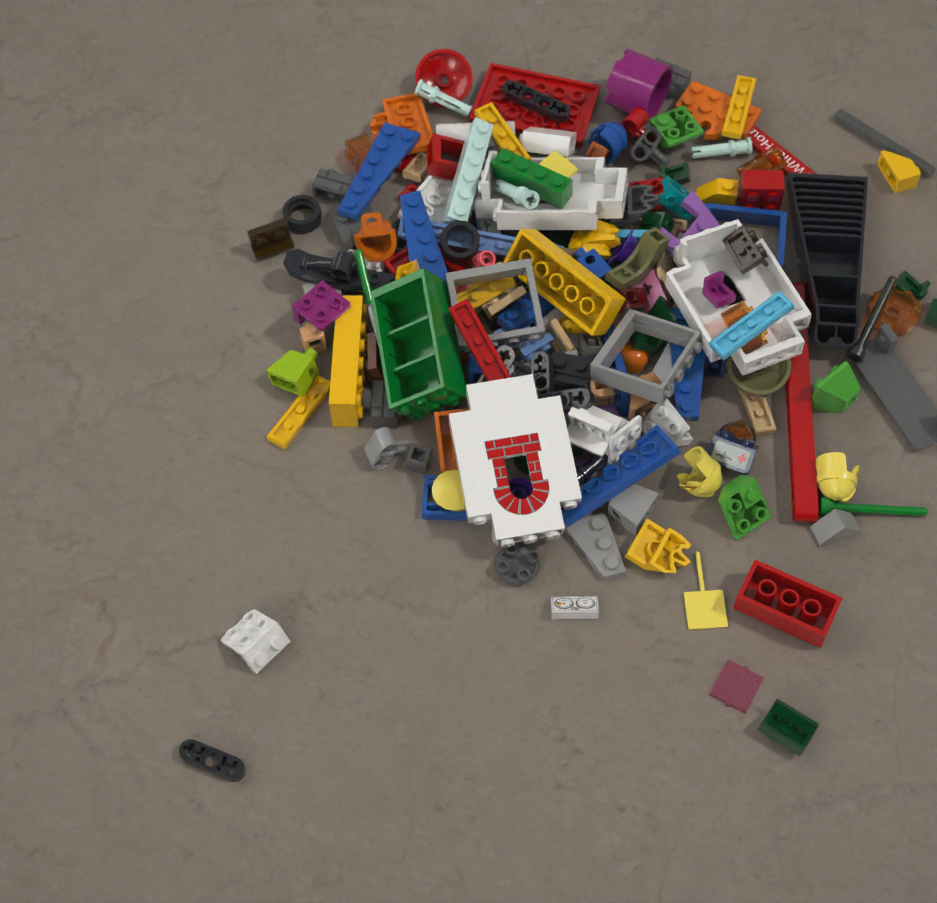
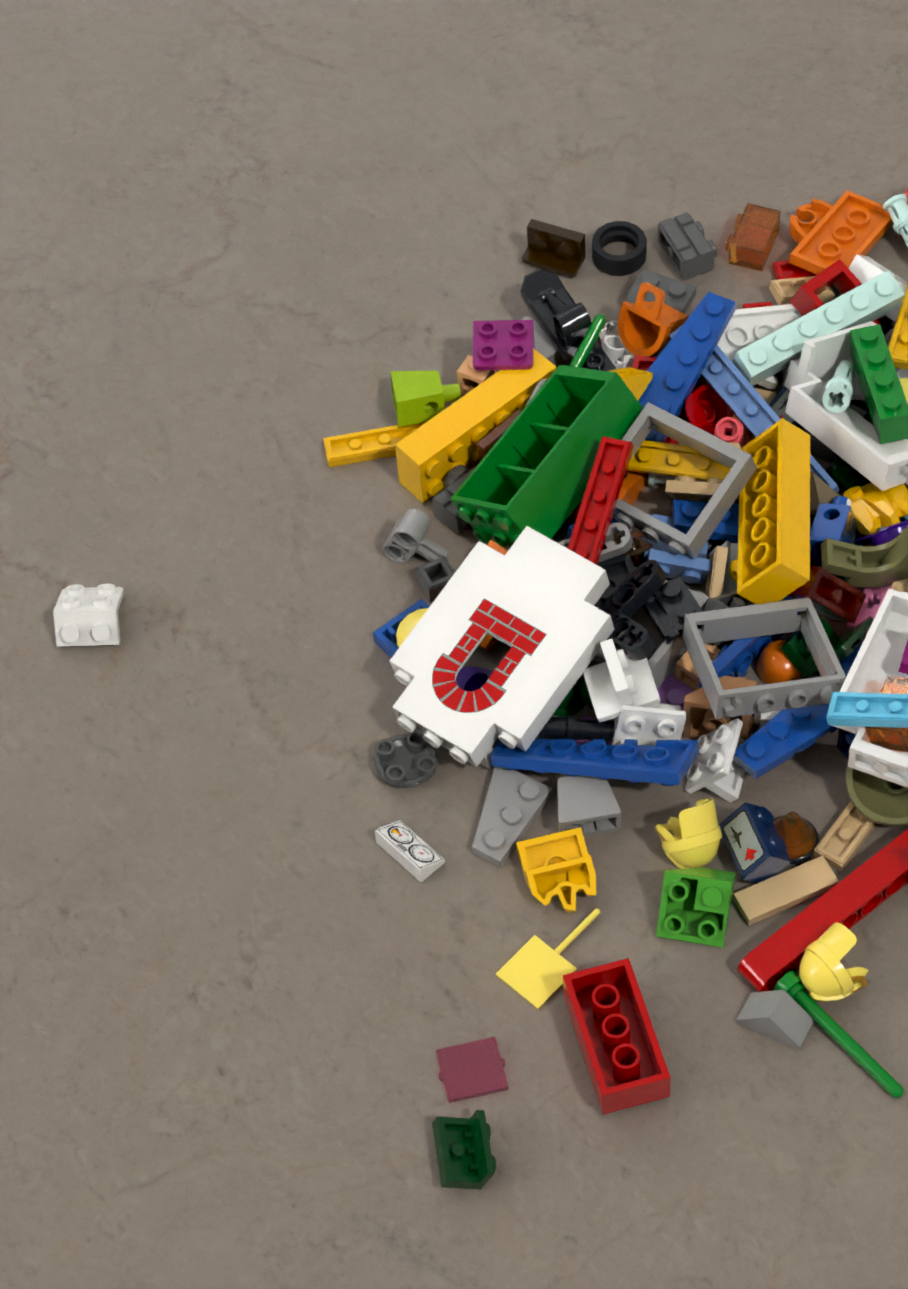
camera: 50 degrees right, 5 degrees down
(383, 157) = (768, 247): blue wing -> none
(460, 226) = (720, 369): black tyre -> none
(767, 461) = (785, 890): none -> tan tile

